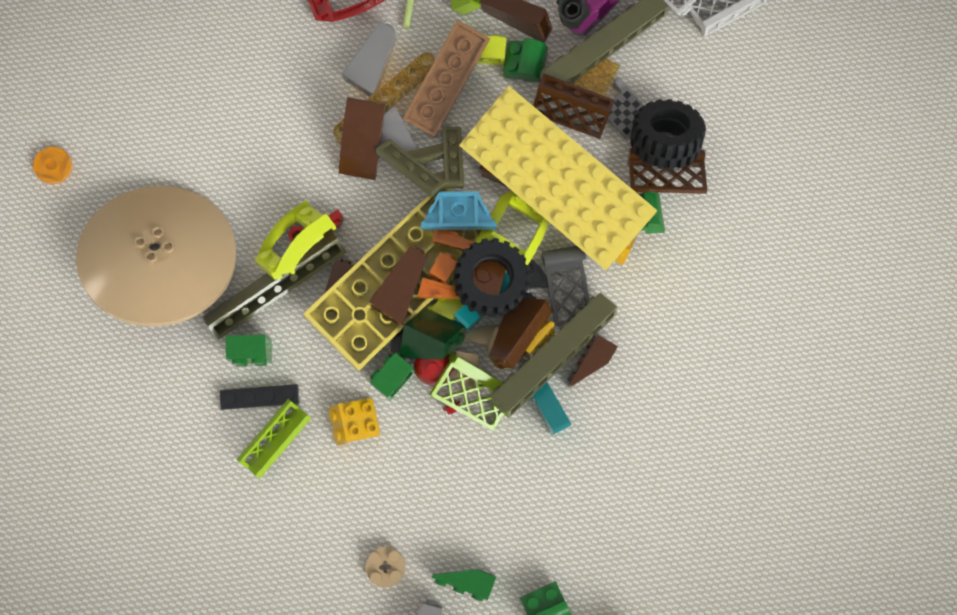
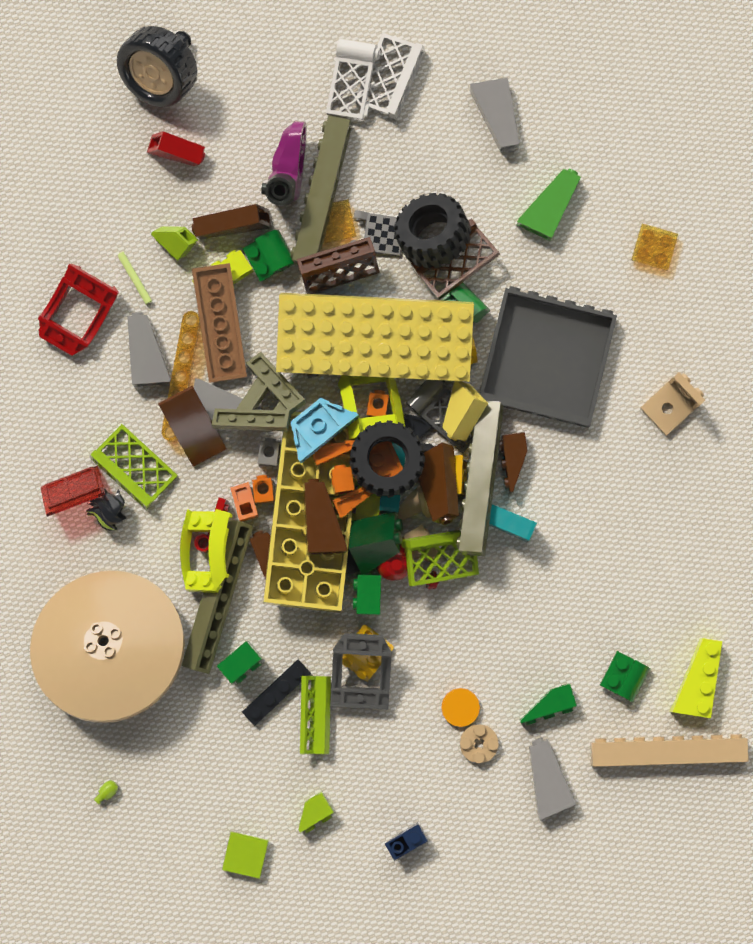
camera: 30 degrees left, 5 degrees up
(65, 369) = (106, 791): none -> lime cylinder
(129, 506) = (245, 854): none -> lime tile
(211, 515) = (315, 810): none -> lime slope
(231, 117) = (72, 490): none -> clear red piece
(246, 153) = (107, 510): none -> black hair
(263, 599) = (406, 841): none -> dark blue slope
(277, 137) = (122, 478): none -> lime fence
(318, 450) = (360, 696): none -> dark grey wedge
(355, 229) = (244, 502): none -> orange brick
(375, 223) = (263, 498): none -> orange brick
(394, 525) = (460, 707): none -> light orange tile
(404, 198) = (268, 461): none -> light grey brick
(523, 228) = (378, 394): none -> orange brick
(581, 291) = (463, 411): none -> light yellow slope
(682, 303) = (548, 356): none -> dark grey panel
(766, 416) = (682, 398): none -> tan bracket
(772, 189) = (547, 210): none -> bright green slope
(788, 84) = (496, 108): none -> light grey slope
(833, 283) = (654, 247): none -> clear yellow tile

